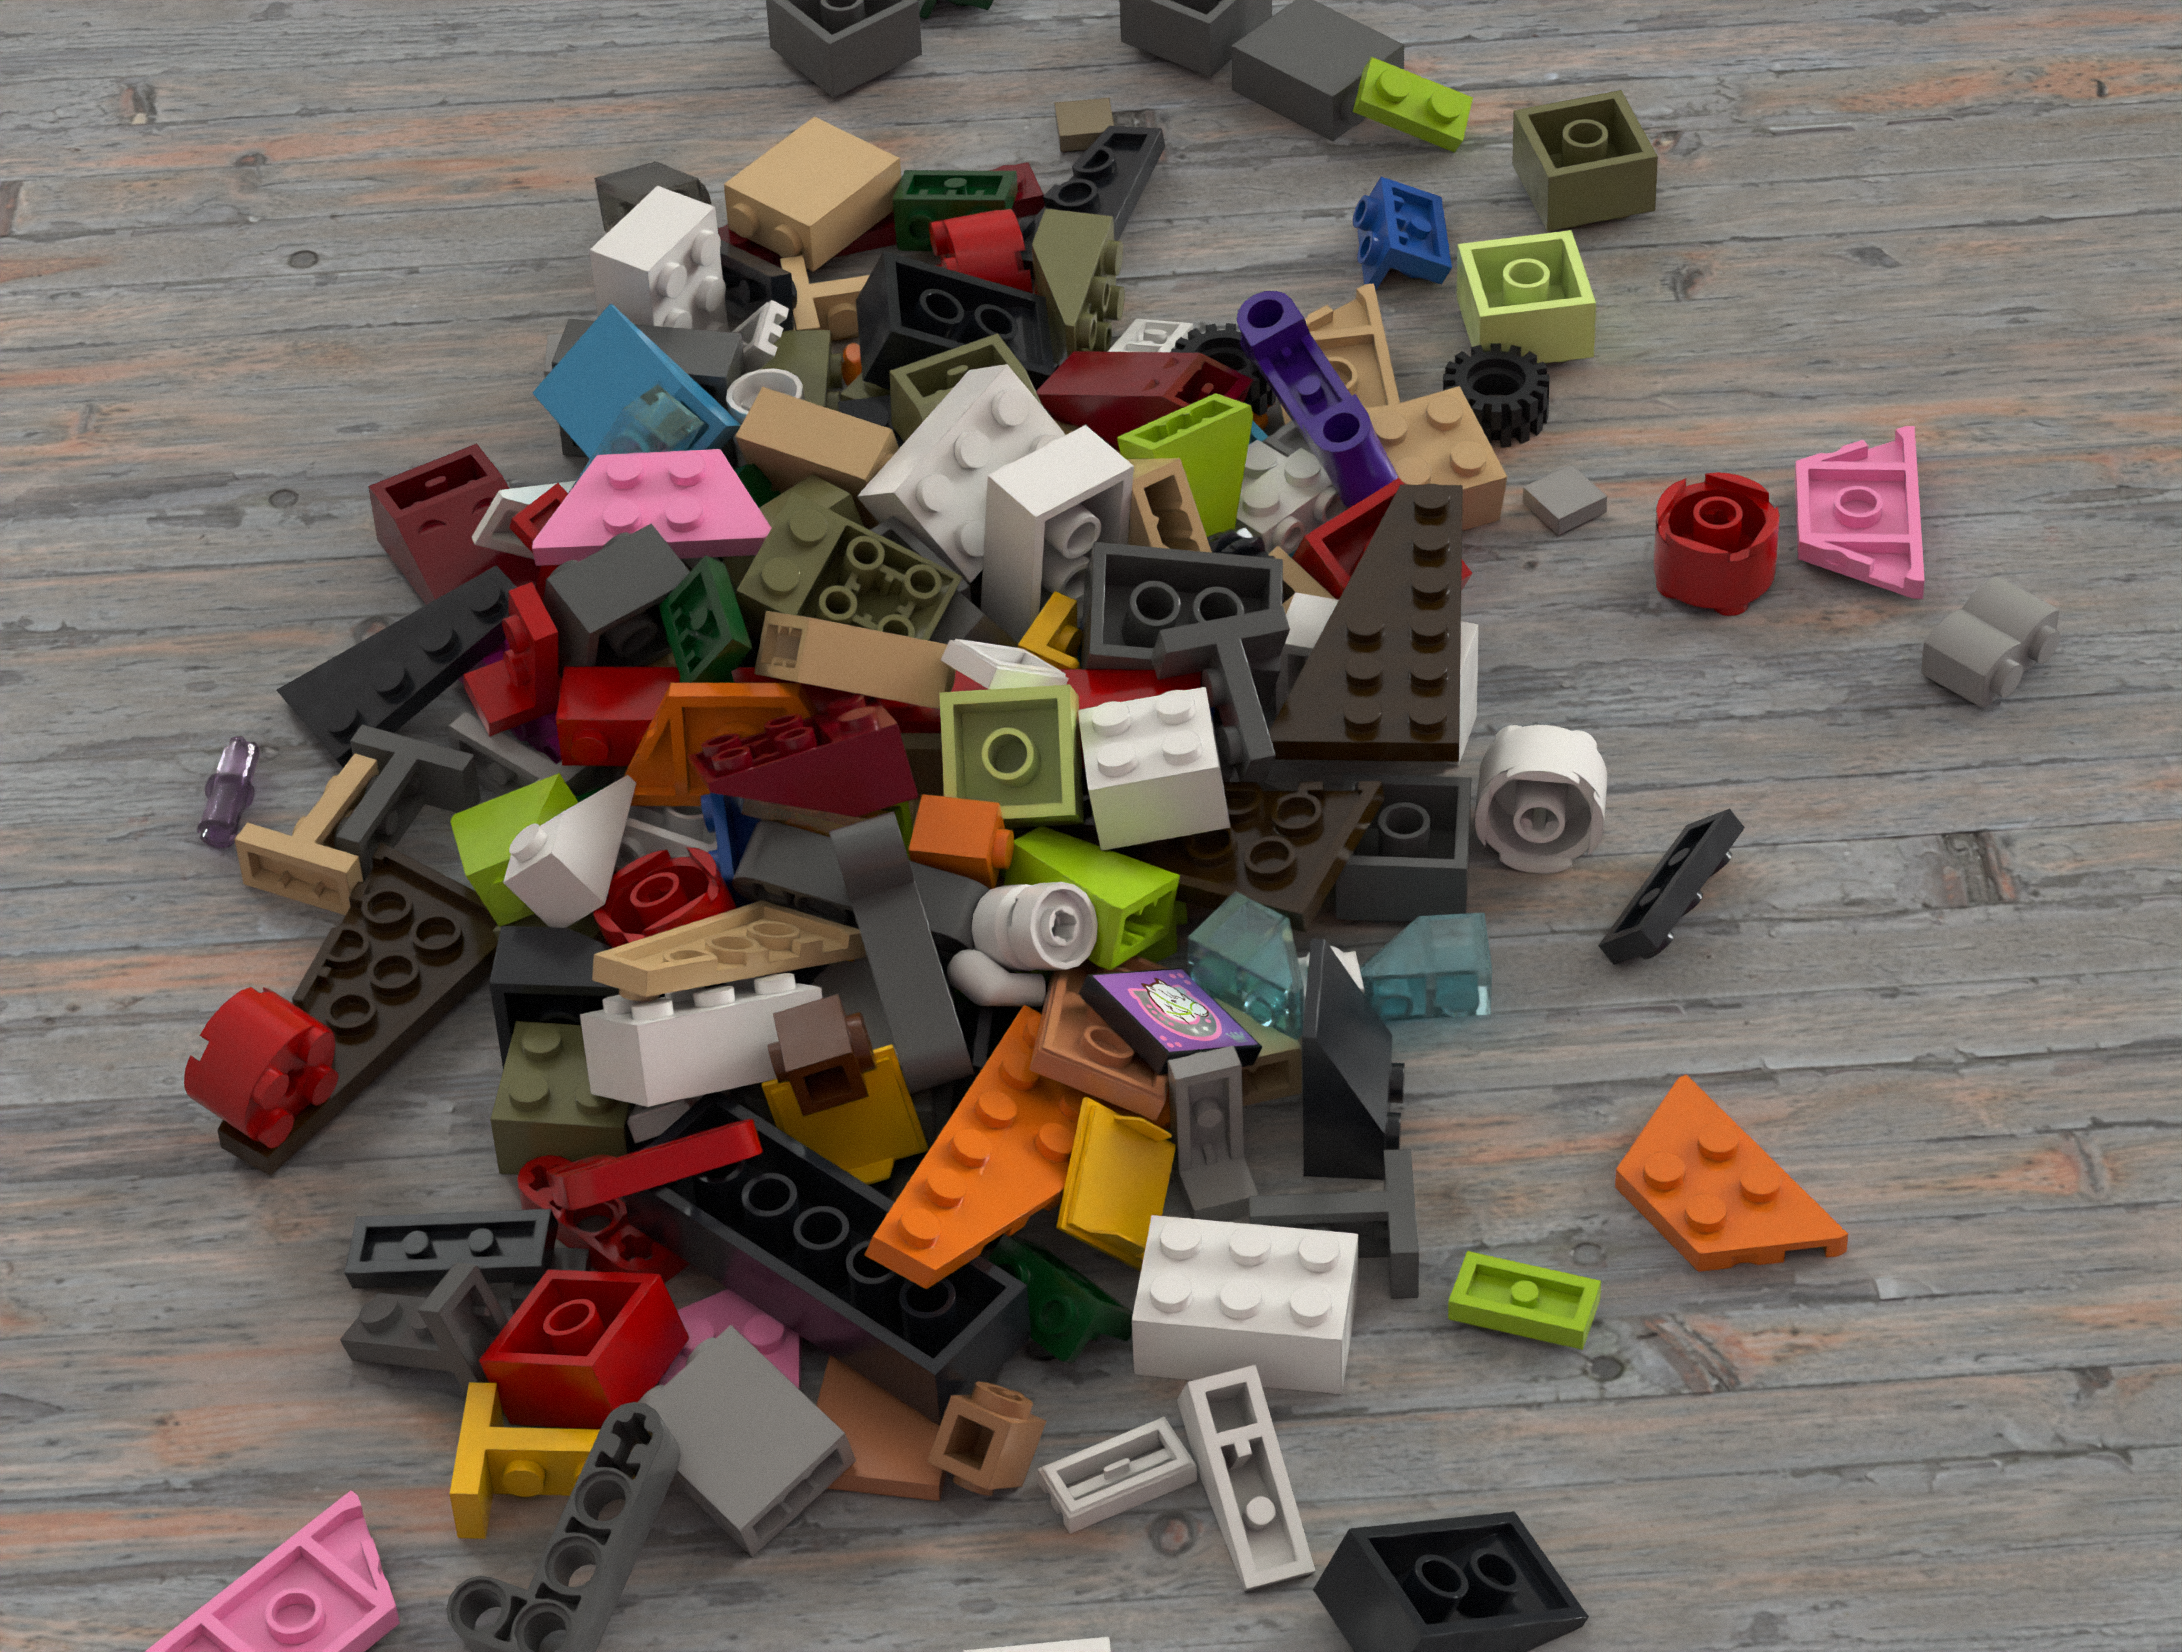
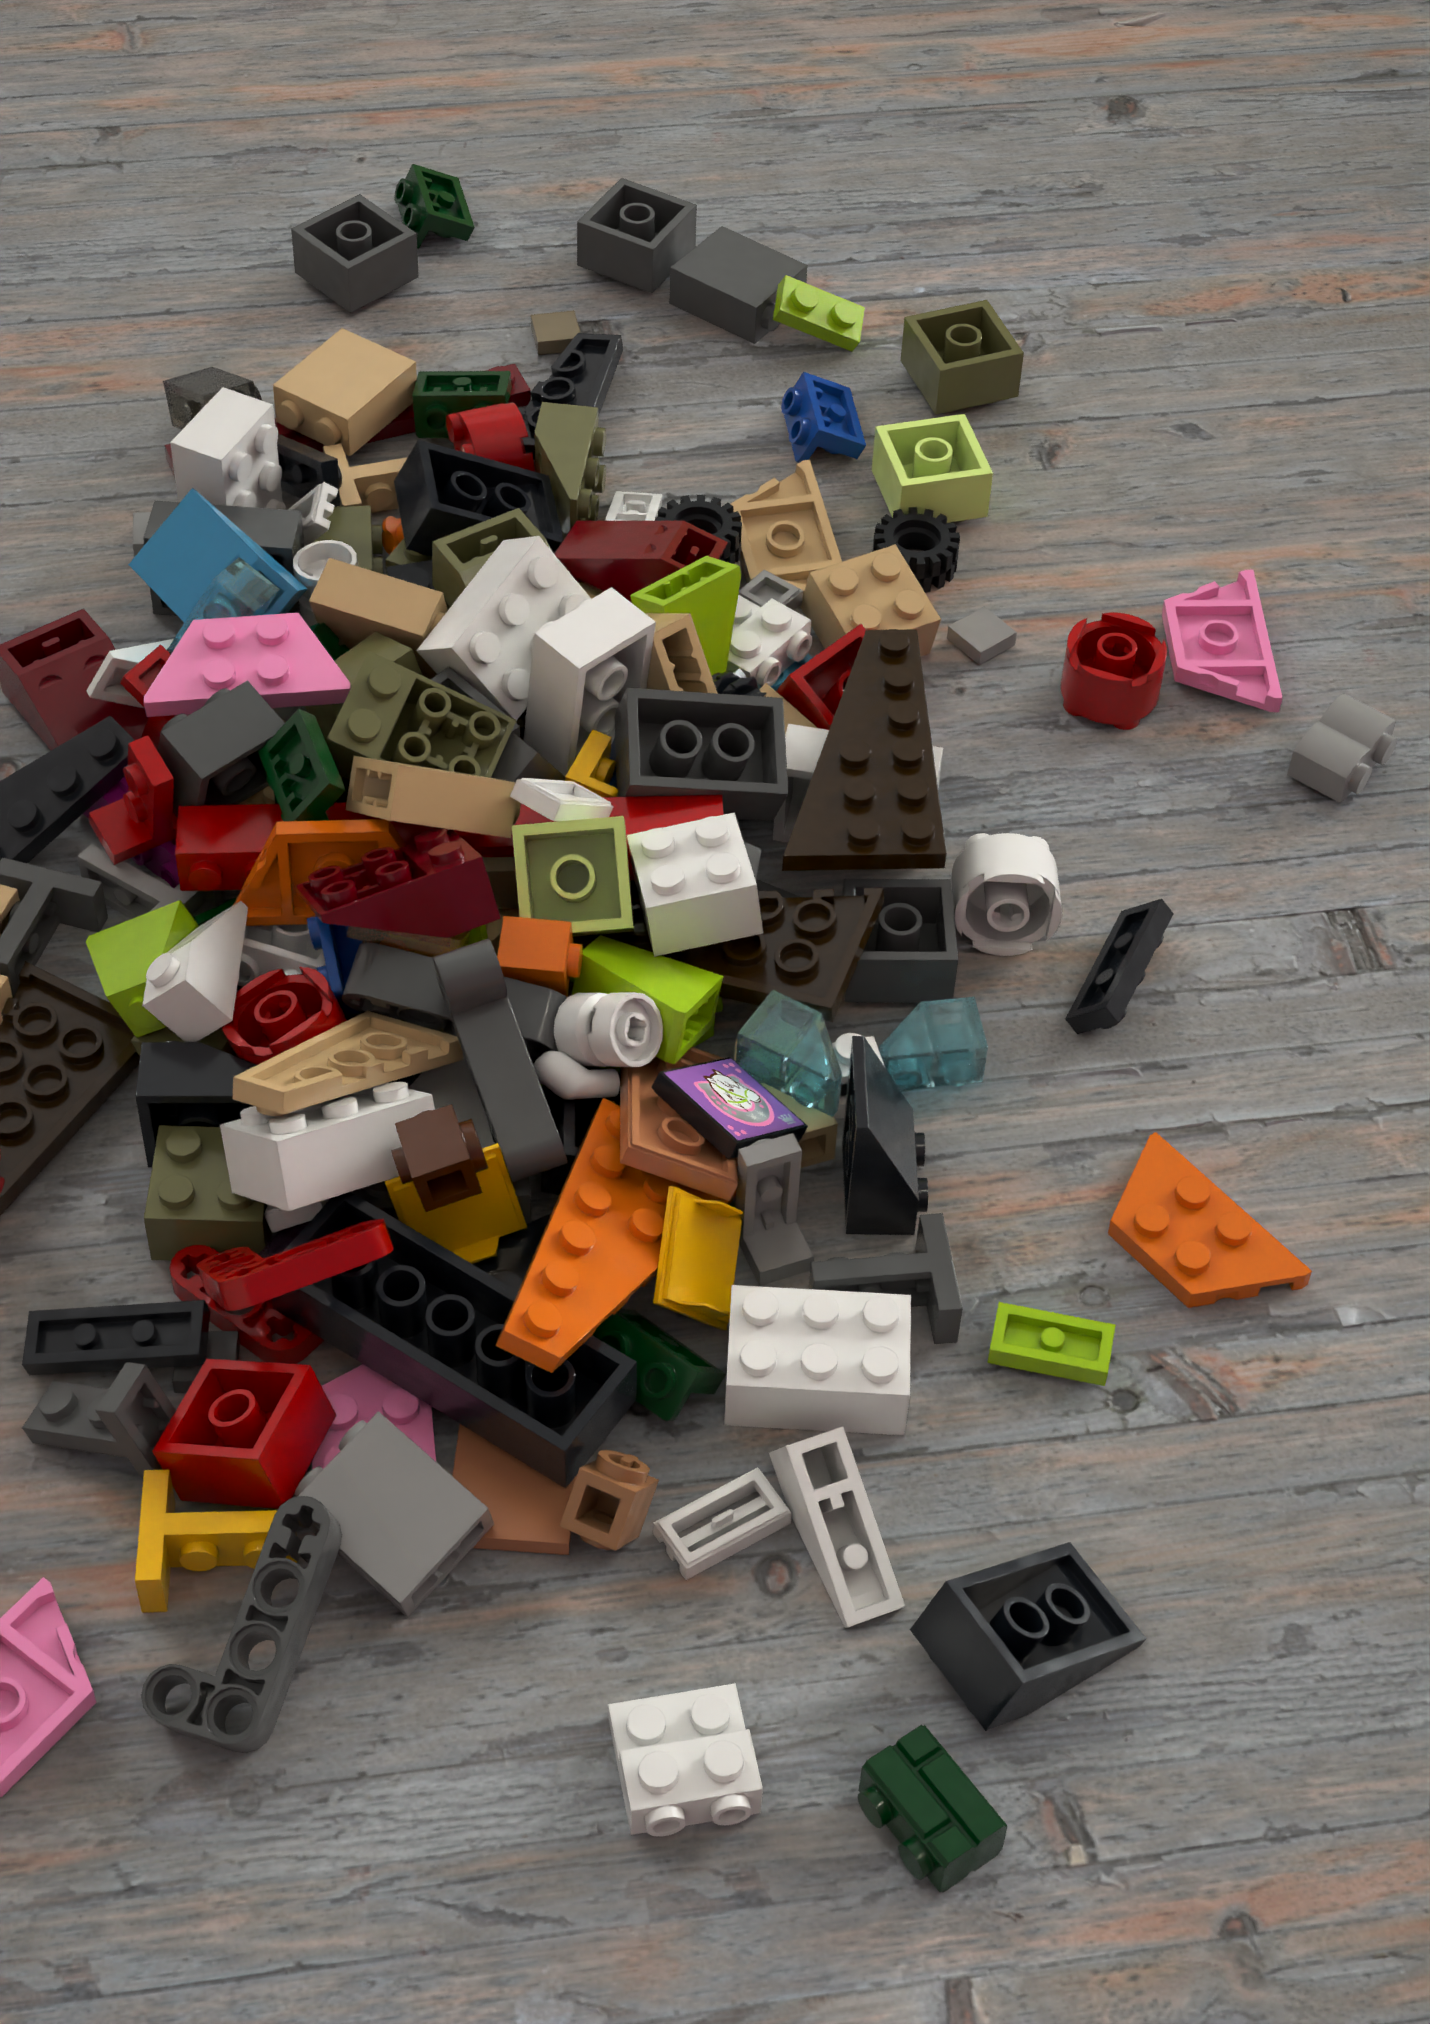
camera: 10 degrees left, 5 degrees up
(1222, 654) = (745, 782): dark grey bracket -> none
(1314, 396) = (788, 563): dark purple plate -> none

